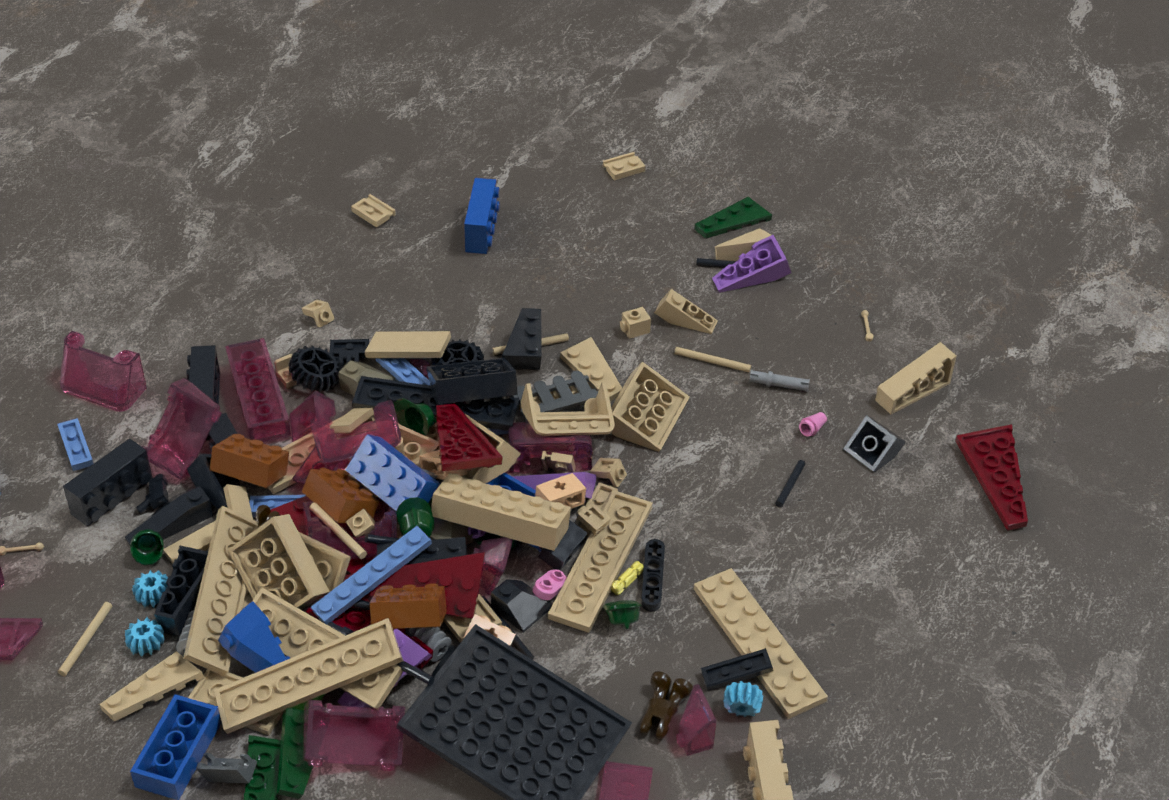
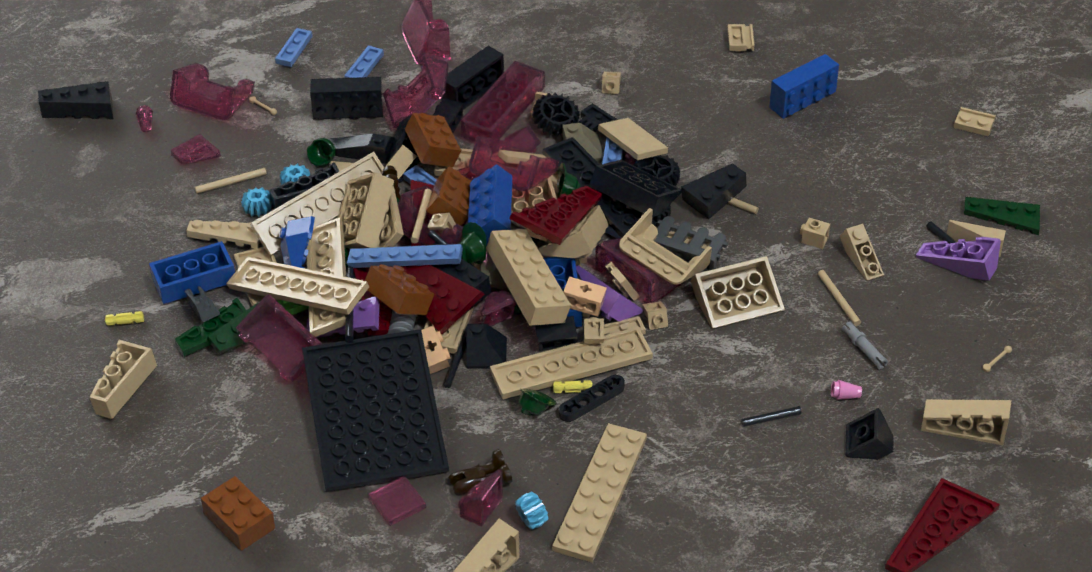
camera: 50 degrees right, 0 degrees up
(157, 494) = (369, 126): black piece -> none
(549, 584) = (516, 350): bright pink plate -> none
(589, 360) = (744, 239): tan wing -> none
(737, 669) = (557, 493): black tile -> none

